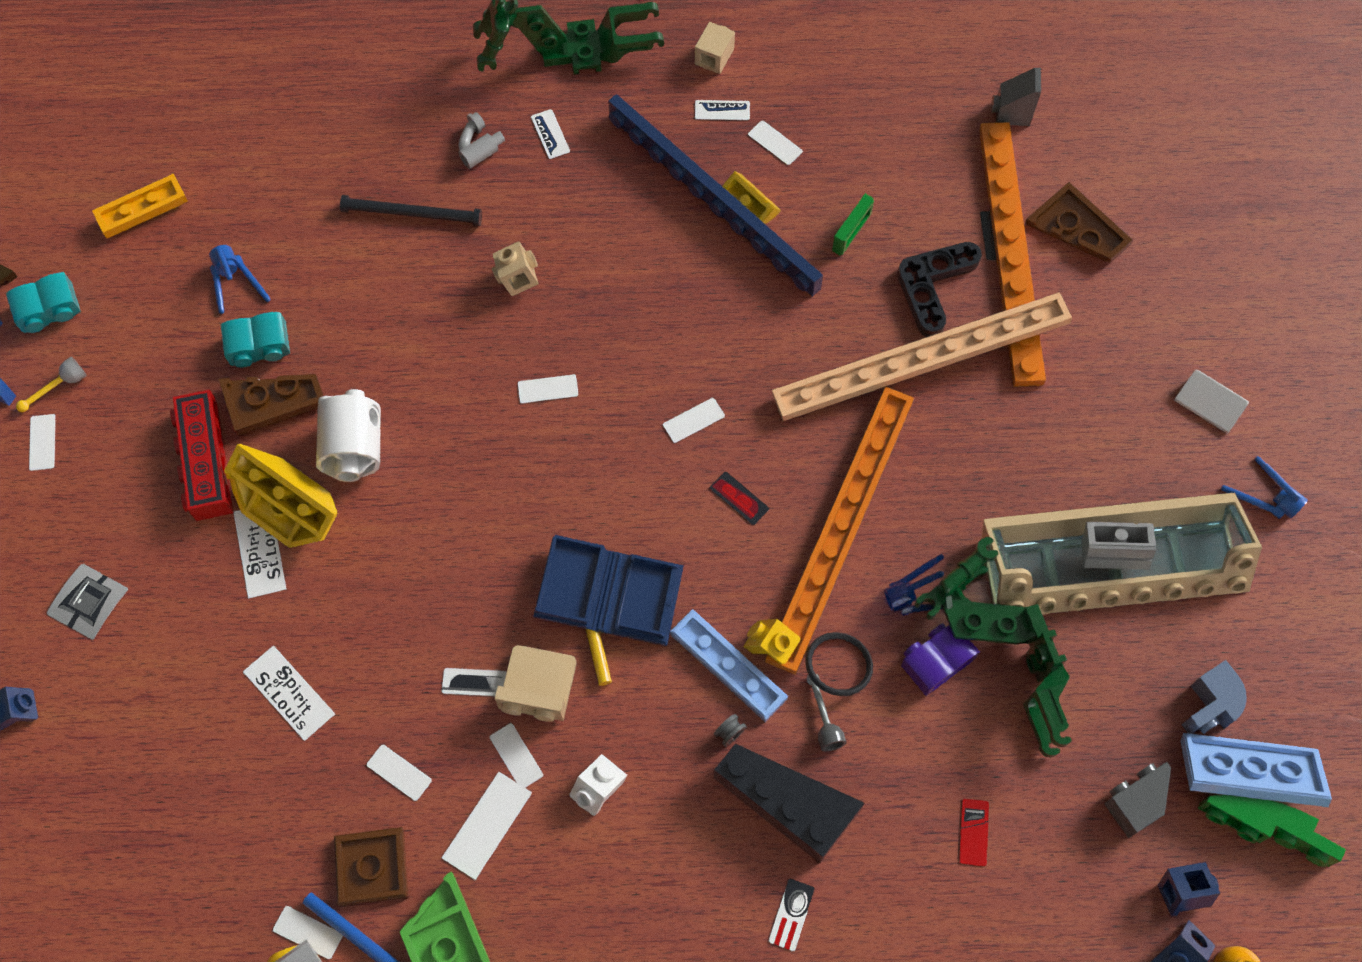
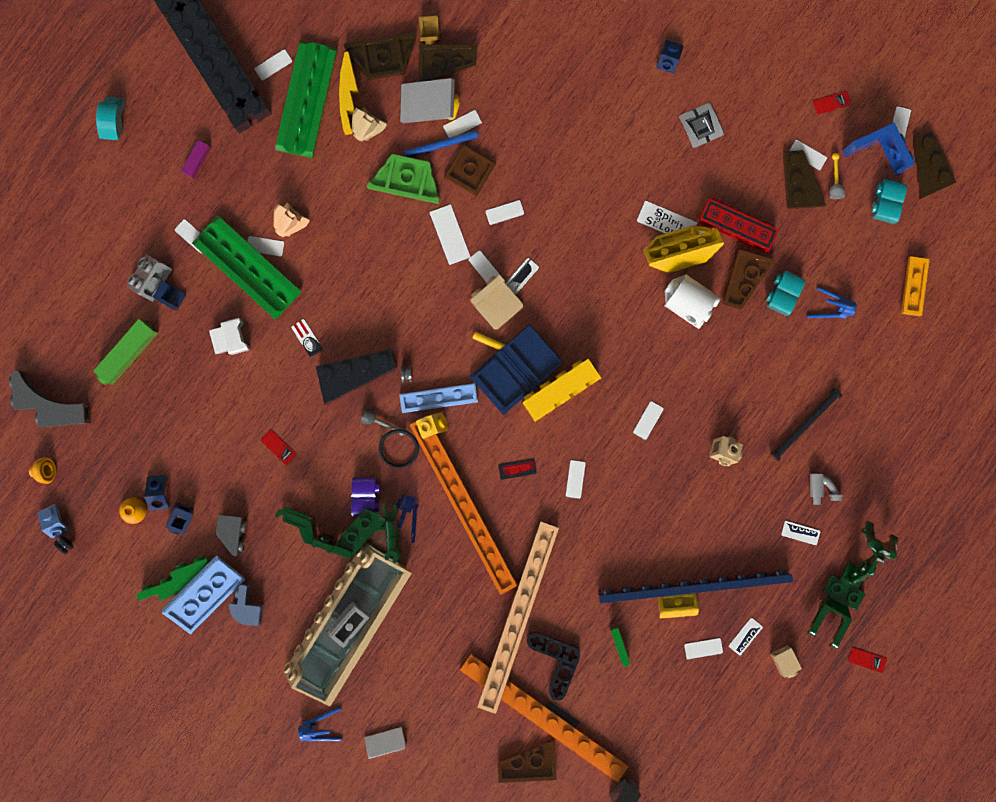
camera: 125 degrees right, 20 degrees up
(87, 424) = (800, 182): none -> dark brown wing
(289, 693) = (582, 188): white sticker -> none
(499, 741) = (483, 266): none -> white sticker
(516, 755) = (465, 269): white sticker -> none
(590, 511) = (561, 390): none -> yellow wedge
(597, 784) = (428, 295): white bracket -> none

